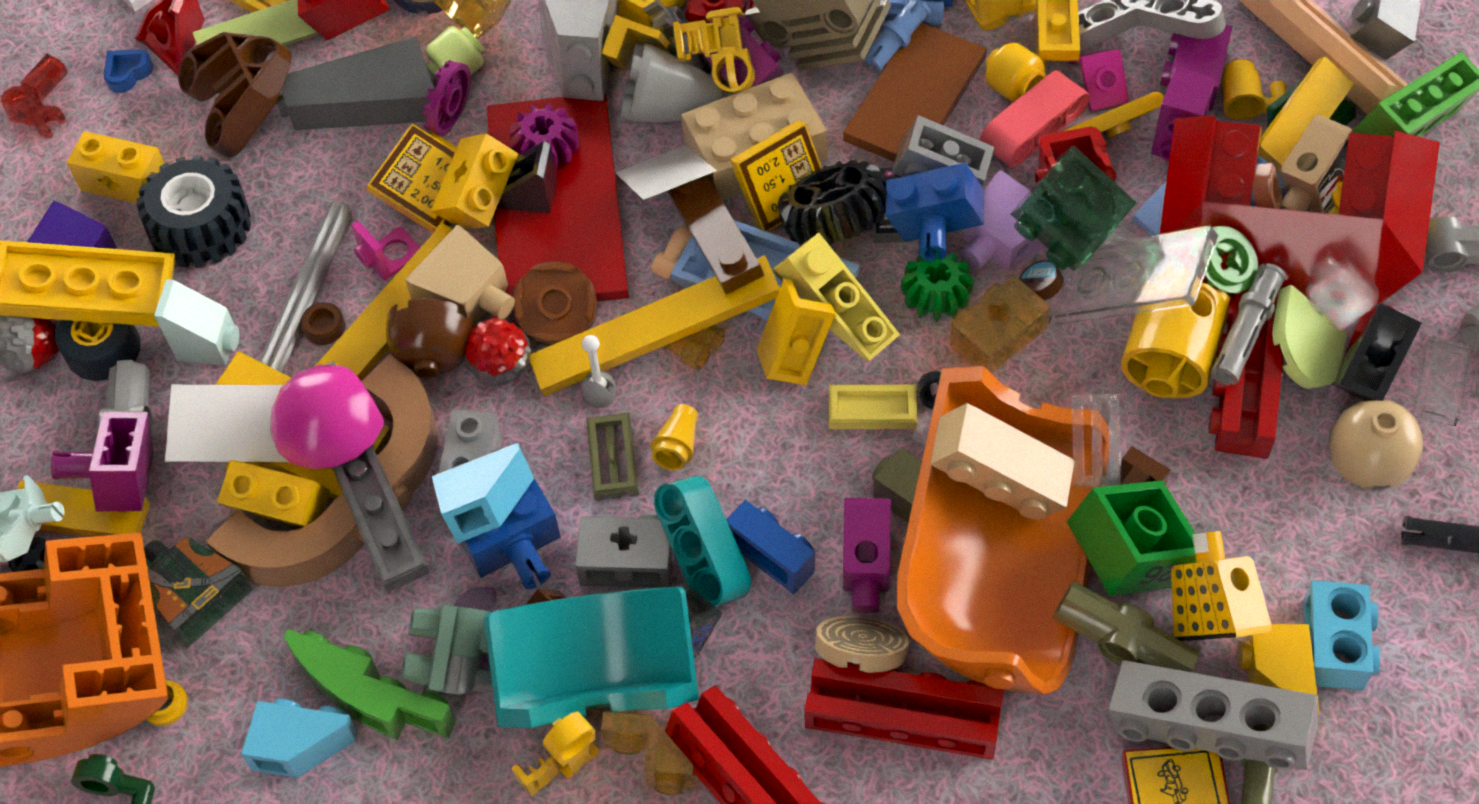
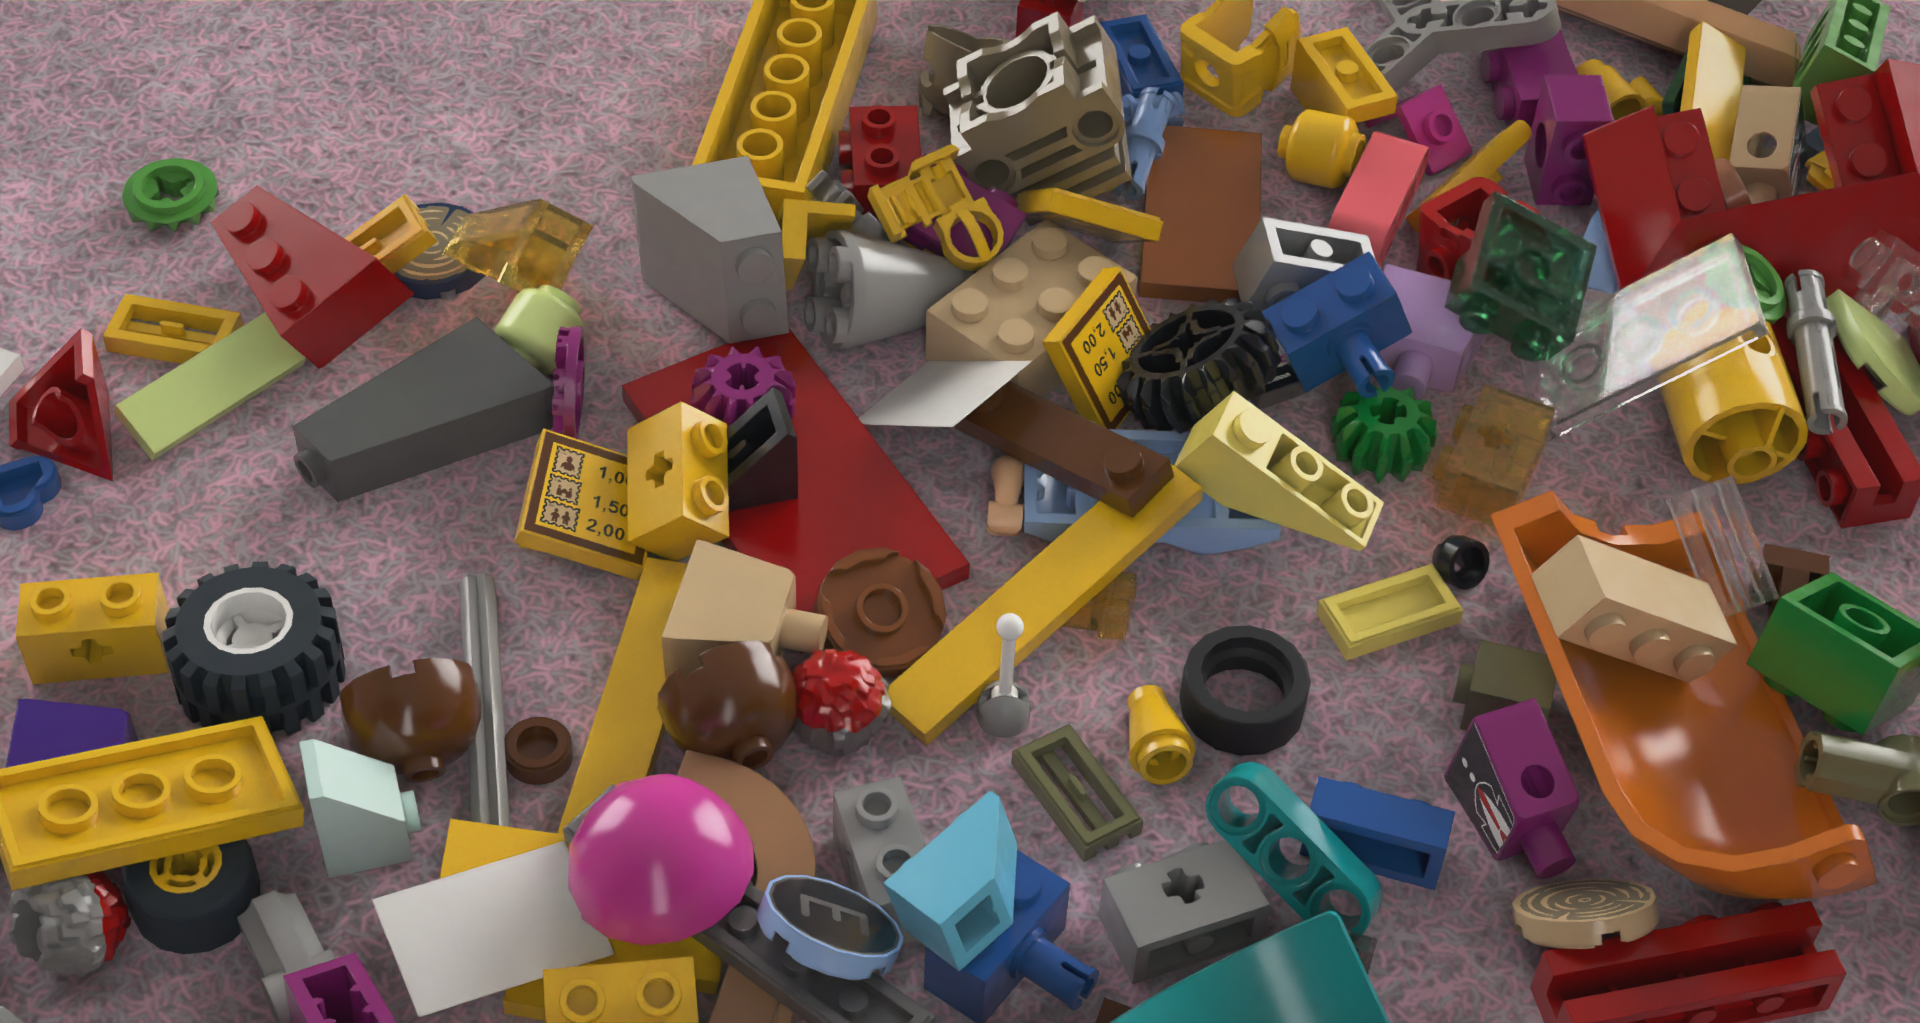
camera: 30 degrees left, 10 degrees down
(245, 83) = (227, 431): reddish brown connector -> none
(255, 283) = (413, 718): none -> reddish brown cylinder
(371, 251) = (572, 619): dark pink bracket -> none
(394, 490) = (829, 927): none -> tile
(742, 398) = (1254, 651): none -> black tyre
(793, 336) = (1247, 544): yellow panel -> none
(820, 78) = (1089, 216): none -> yellow tile
(1043, 279) = (1513, 376): tile -> none

